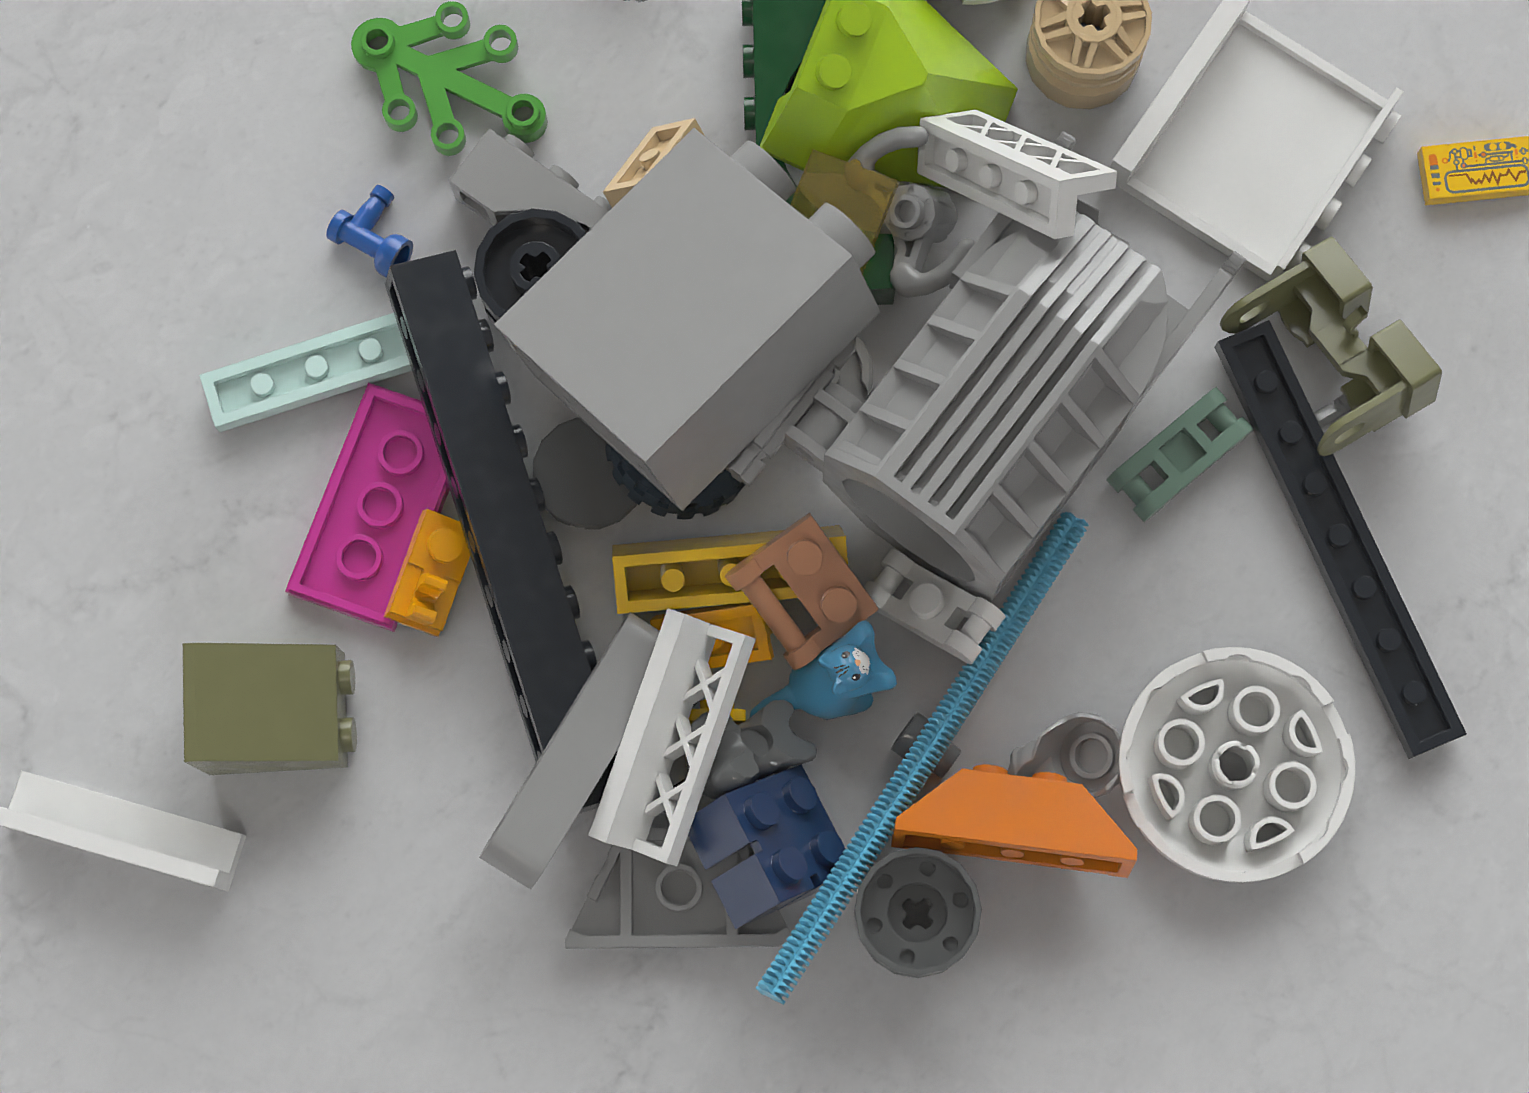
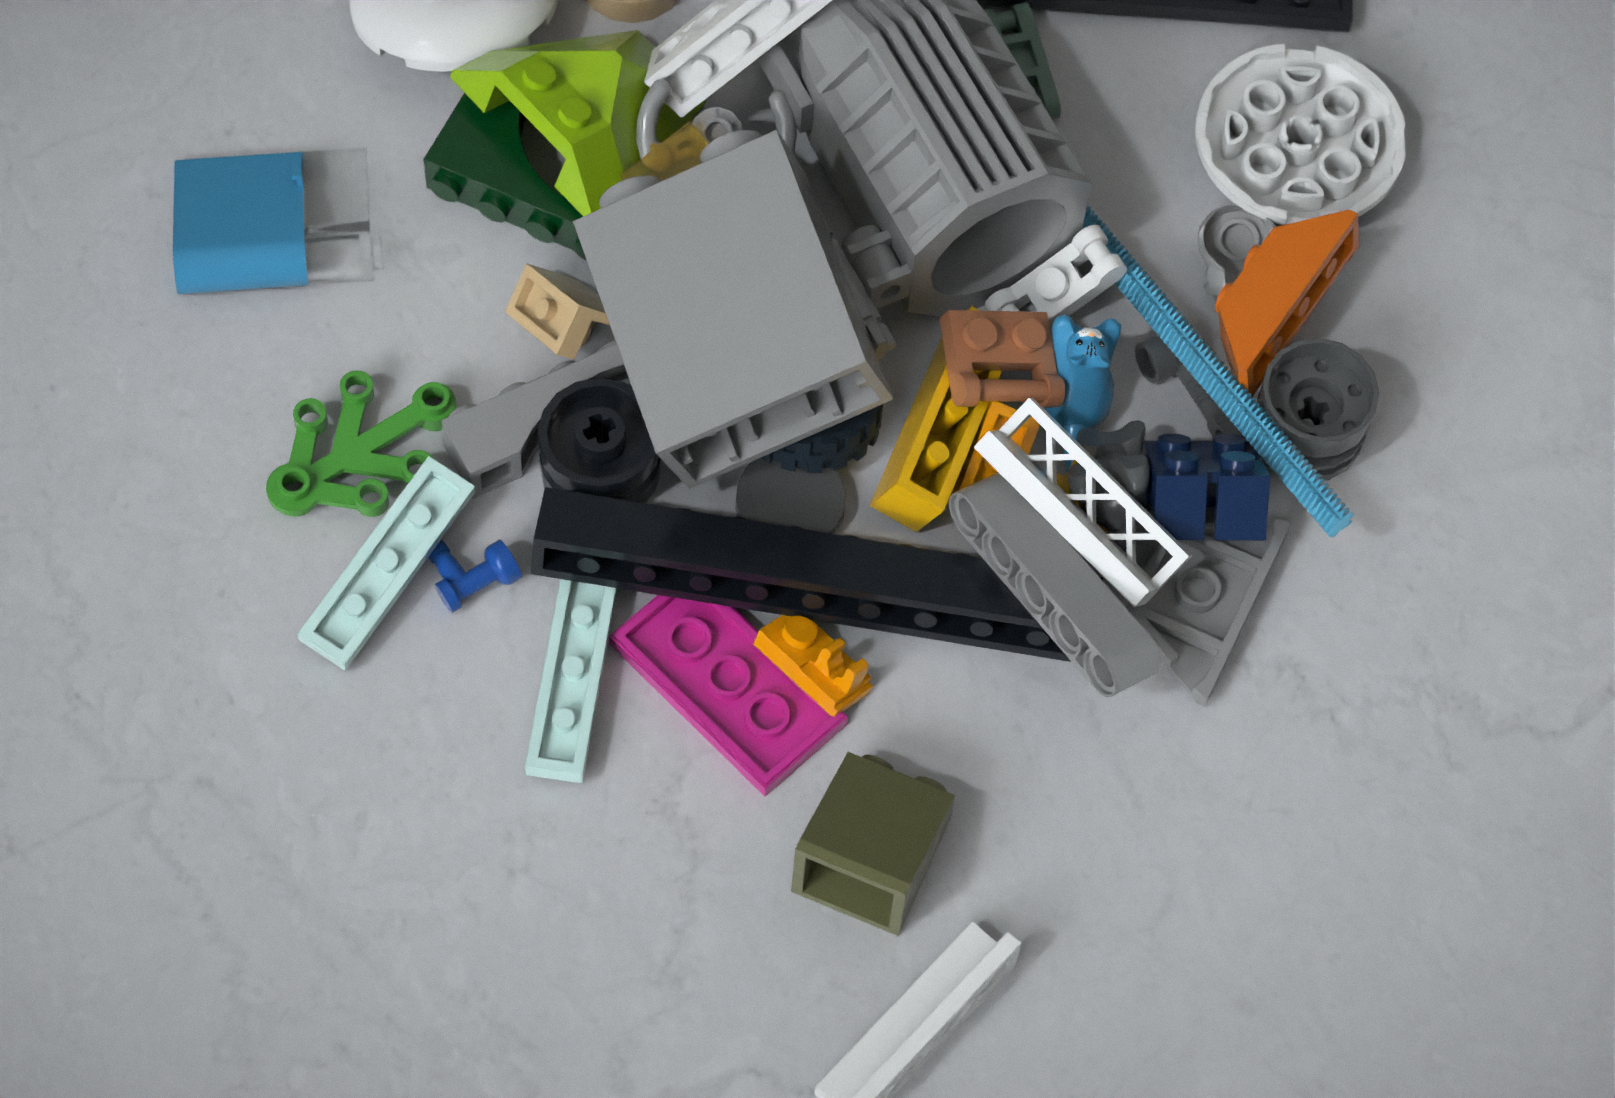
camera: 70 degrees left, 15 degrees down
(337, 158) = (386, 563): none -> light aqua plate

